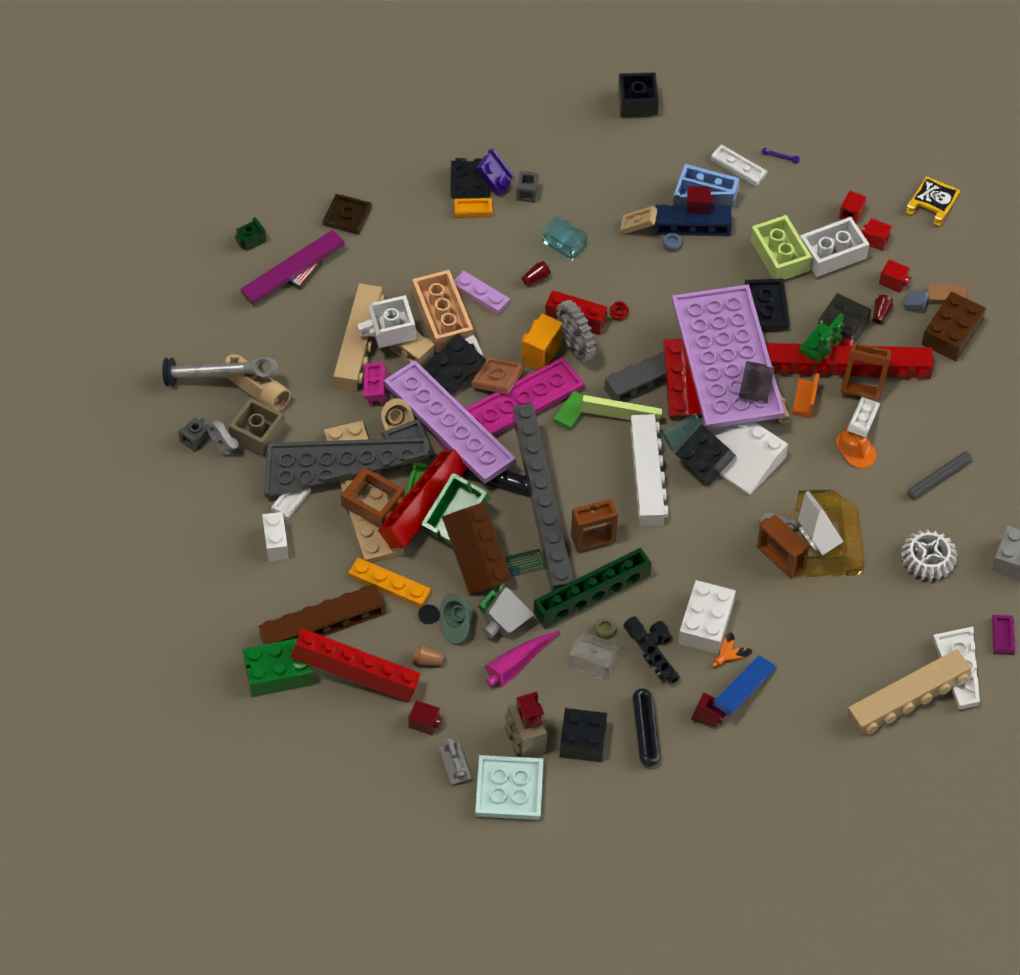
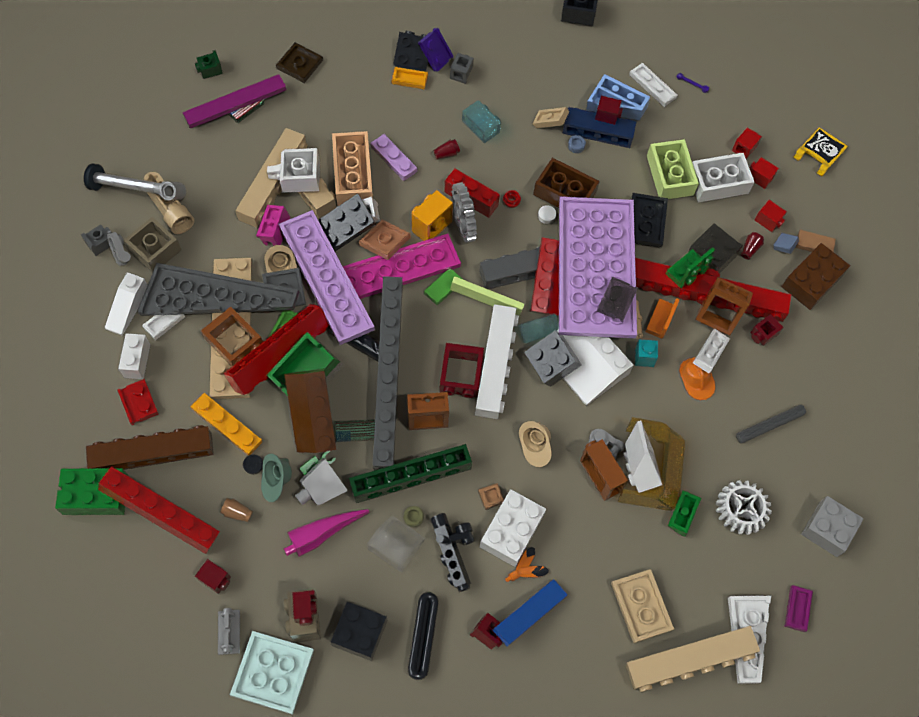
camera: 10 degrees right, 10 degrees up
(247, 489) = (126, 303): none -> white slope
(291, 579) = (138, 402): none -> red plate
(615, 468) = (462, 352): none -> dark red window
(660, 319) = (547, 214): none -> white tile
(668, 280) = (563, 181): none -> reddish brown brick
(677, 595) = (491, 496): none -> medium nougat tile
(708, 537) = (535, 443): none -> tan piece
(798, 432) = (646, 353): none -> teal brick
(851, 661) = (642, 606): none -> tan plate
(872, 571) = (684, 513): none -> green slope
(915, 387) = (766, 330): none -> dark red brick

